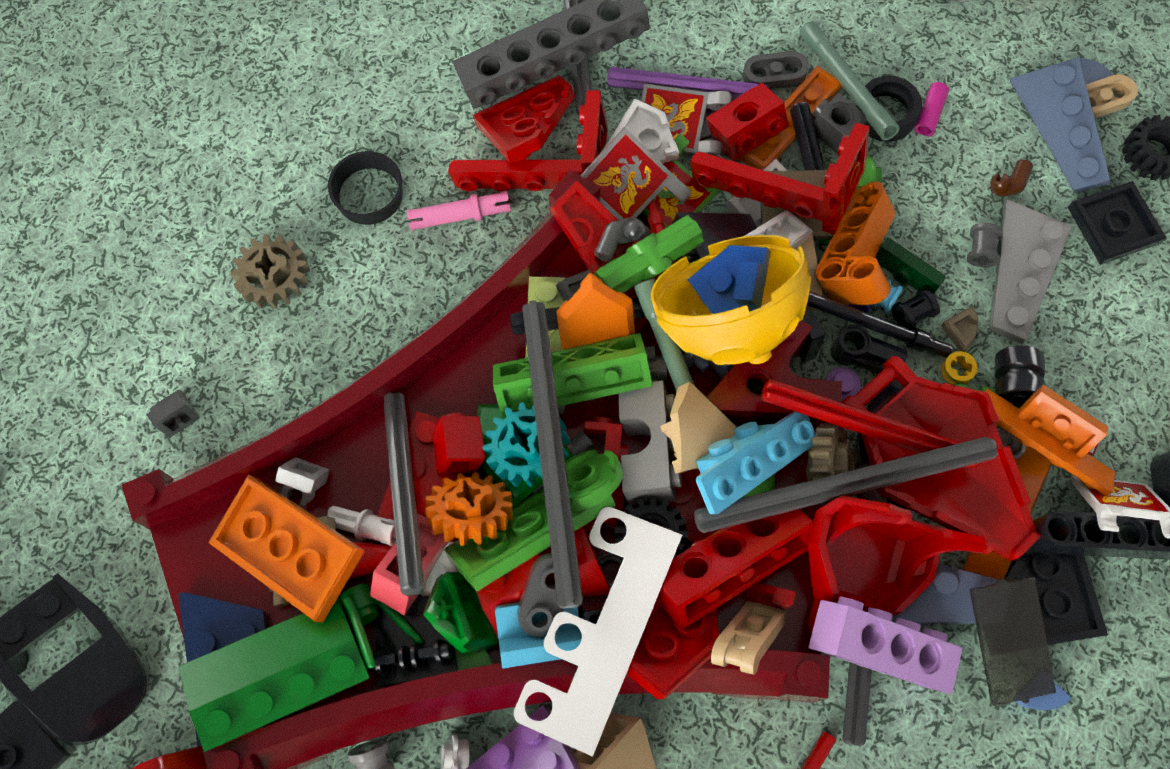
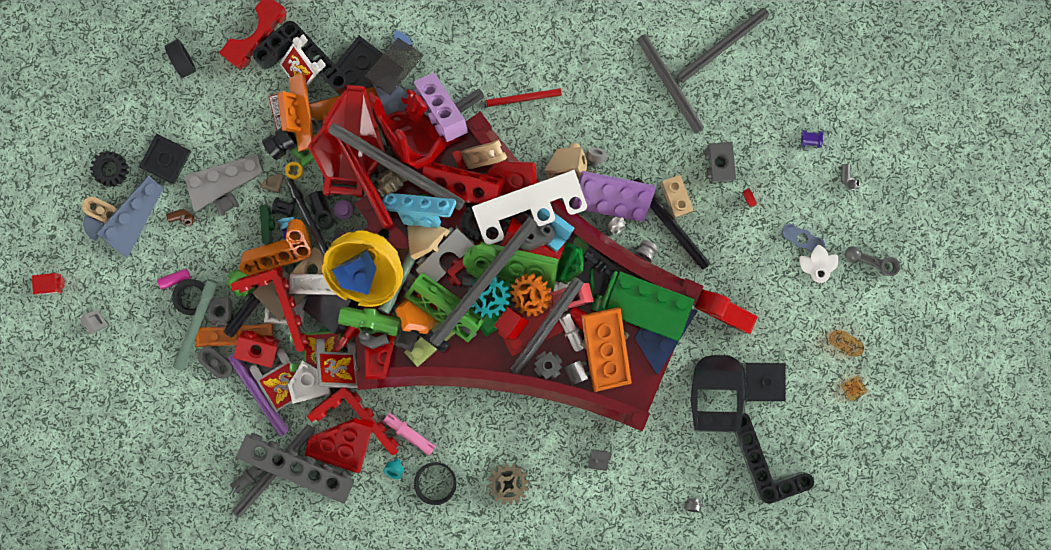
camera: 140 degrees left, 15 degrees up
(357, 454) = (540, 369): none -> dark grey brick
(434, 156) = (394, 469): none -> teal tile
(920, 609) = (415, 106): none -> red plate

